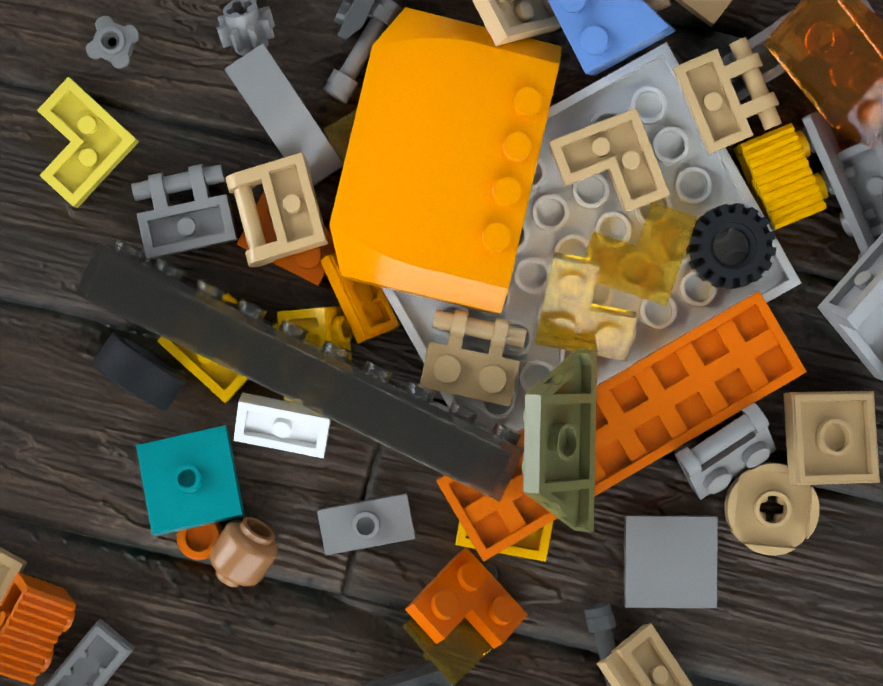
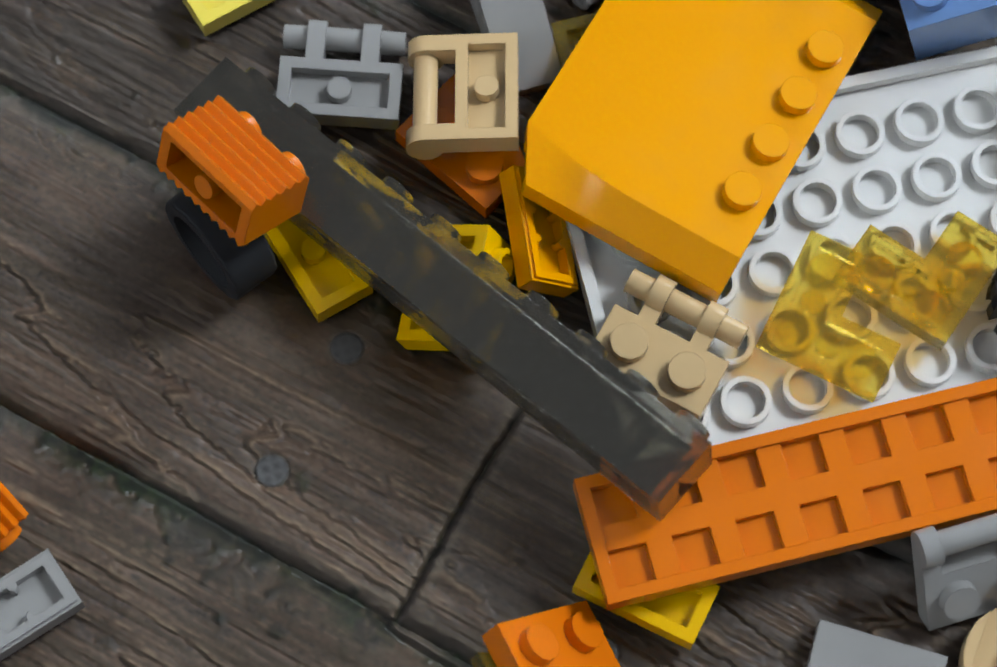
camera: 10 degrees right, 20 degrees down
(132, 341) = (232, 170): none -> orange brick
(190, 480) = (237, 403): teal plate -> none
(198, 541) = (224, 485): orange tile -> none
(243, 552) = (278, 515): medium nougat head -> none
(281, 425) = (385, 366): white plate -> none
(366, 523) = (456, 531): light grey plate -> none
(562, 439) = (762, 463): olive wing -> none
(615, 146) = (925, 136): tan plate -> none

